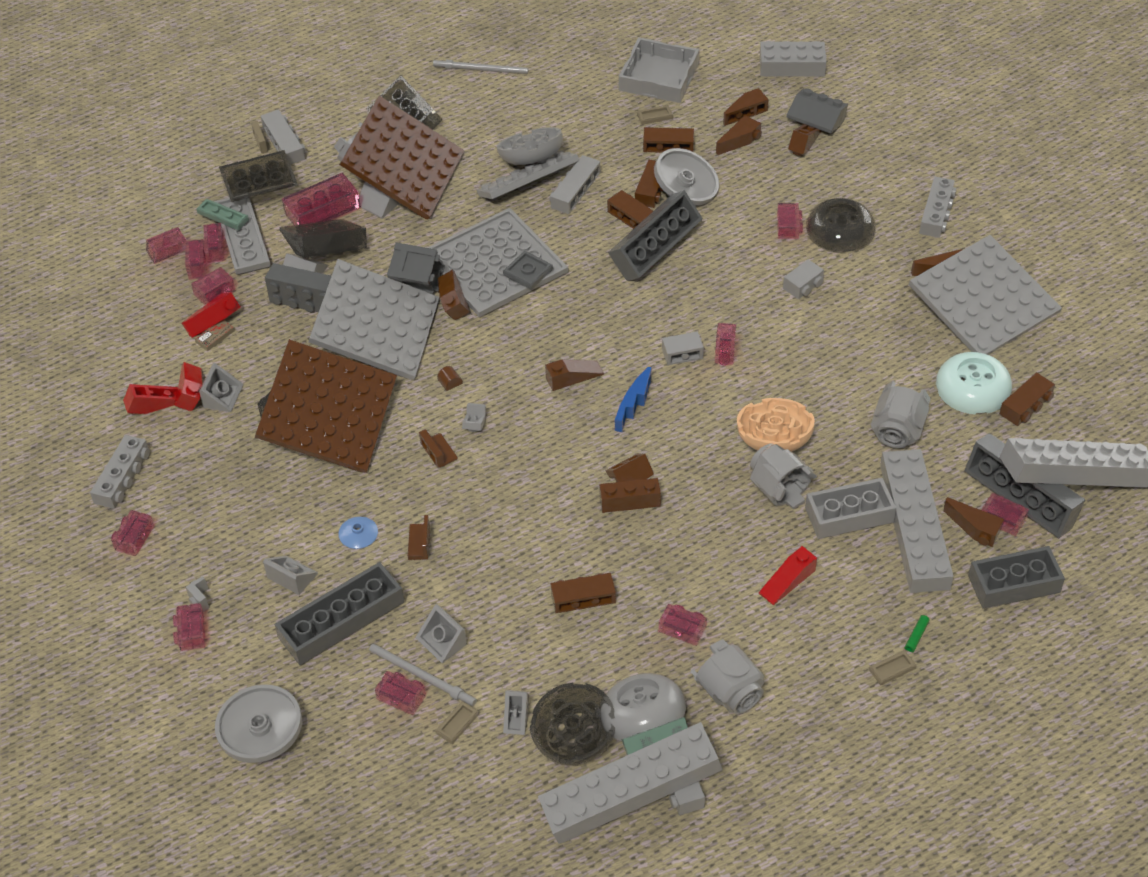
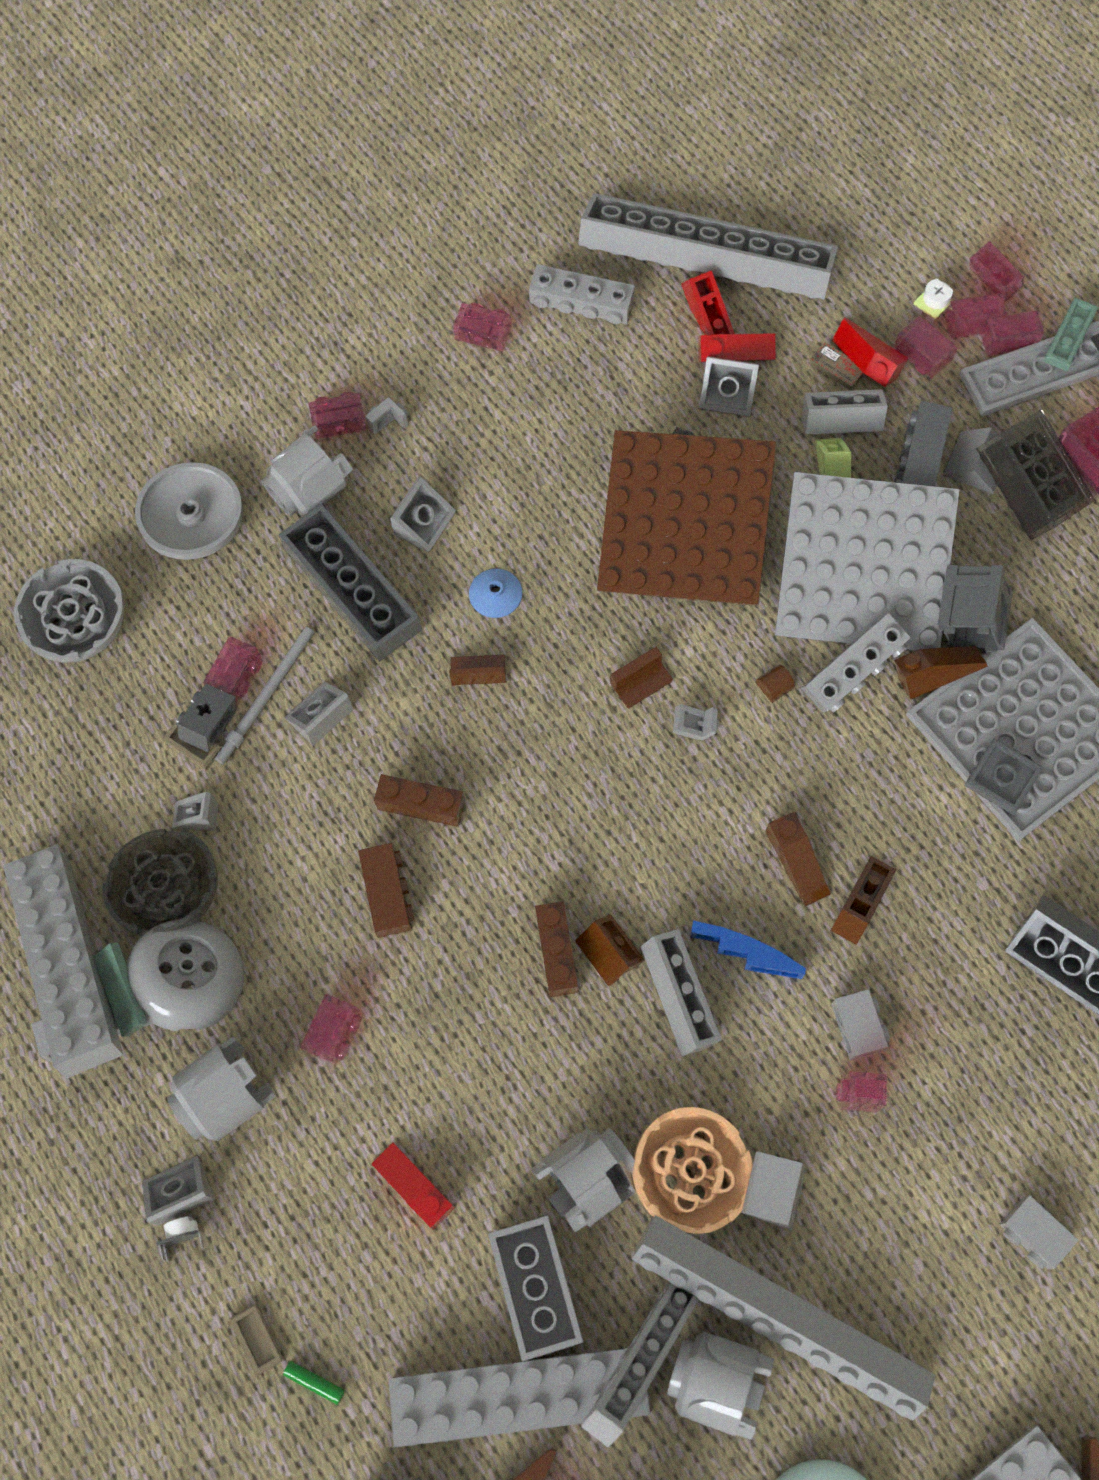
camera: 90 degrees right, 20 degrees up
(100, 394) = (707, 245): none -> light grey brick
(177, 278) = (934, 299): none -> white piece
(244, 637) = (305, 475): none -> light grey piece
(255, 328) = (844, 411): none -> light grey brick
(292, 330) = (833, 457): none -> yellowish green slope
(331, 790) = (48, 598): none -> light grey brick
(440, 704) = (206, 717): none -> dark grey brick
(444, 331) = (855, 663): none -> light grey brick
(518, 571) = (419, 800): none -> reddish brown brick
(607, 342) = (863, 900): none -> reddish brown slope
(661, 430) = (680, 992): none -> light grey brick
(785, 385) = (774, 1189): none -> light grey slope
(797, 714) = (176, 1191): none -> light grey slope
(826, 712) = (178, 1232): none -> piece
(858, 387) = (785, 1318): none -> light grey brick
(889, 437) = (639, 1364): none -> light grey brick

